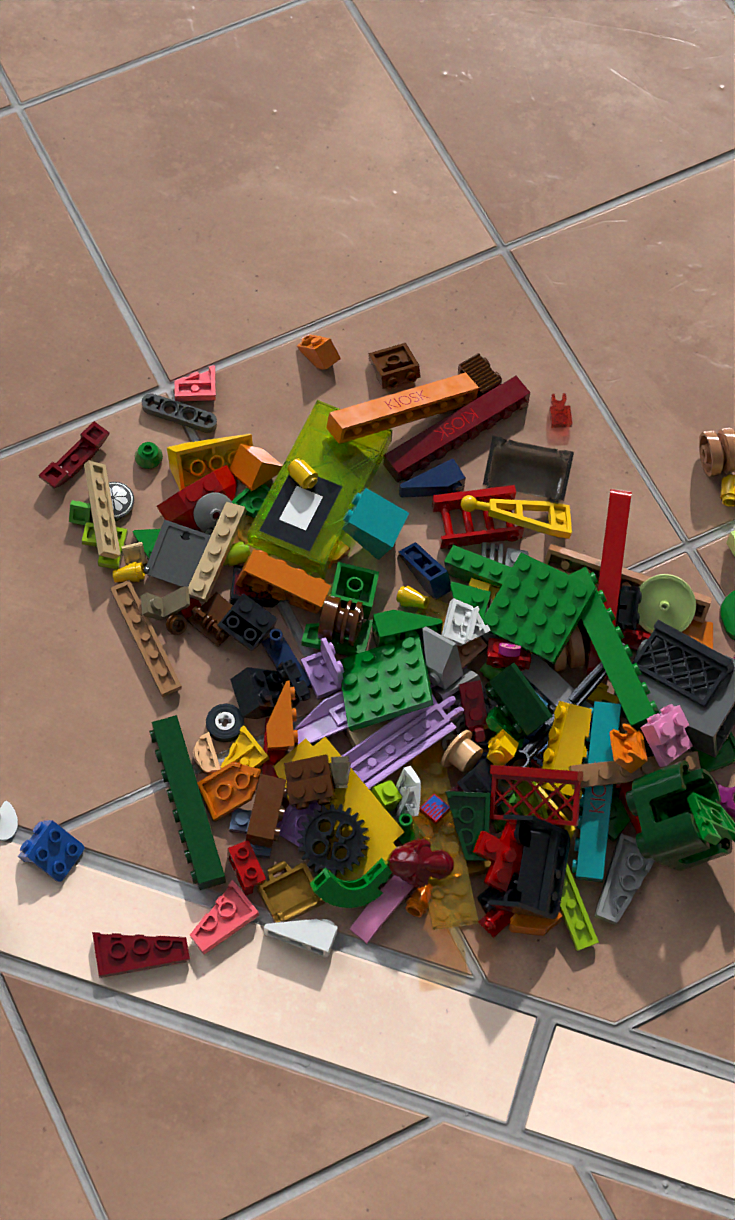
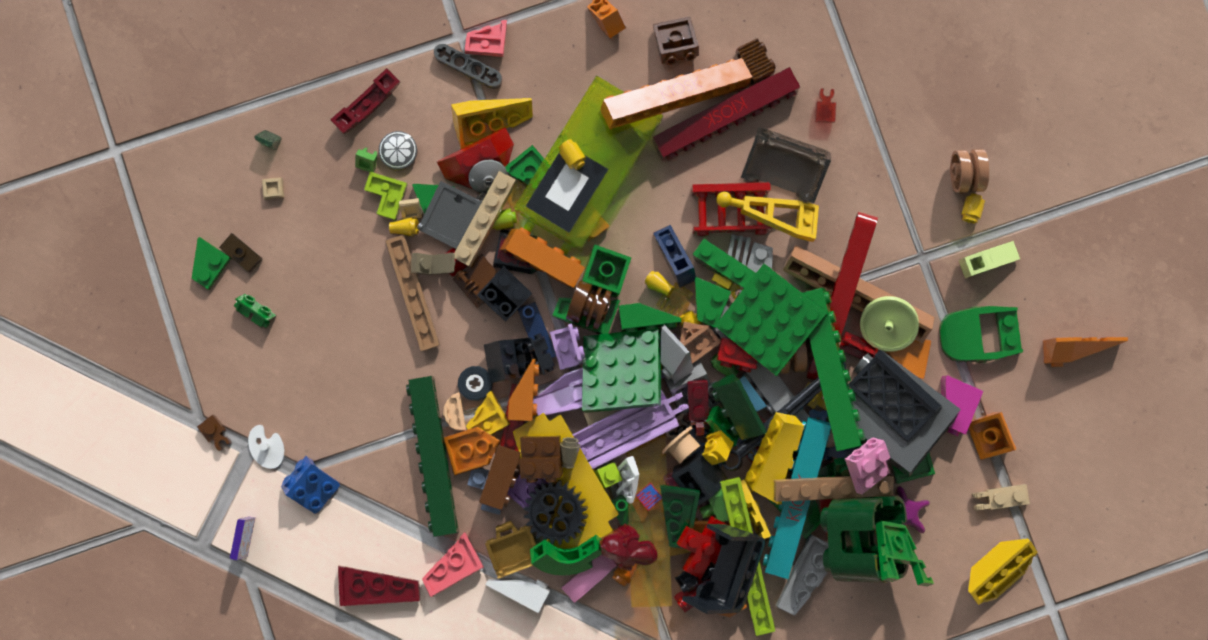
camera: 10 degrees right, 20 degrees up
(102, 510) = (384, 163): tan plate -> none
(148, 455) = (435, 111): green cone -> none
(180, 628) = (444, 286): reddish brown plate -> none
(245, 866) = (477, 525): red bracket -> none
(254, 466) = (531, 132): orange slope -> none
(374, 522) = (633, 209): teal slope -> none
(439, 480) = (699, 167): dark blue slope -> none
(463, 623) = (699, 324): white slope -> none
(509, 649) = (738, 356): dark pink tile -> none
(536, 775) = (745, 485): red fence -> none
(628, 748) = (830, 473): orange hinge -> none
(631, 598) = (858, 316): black hinge -> none

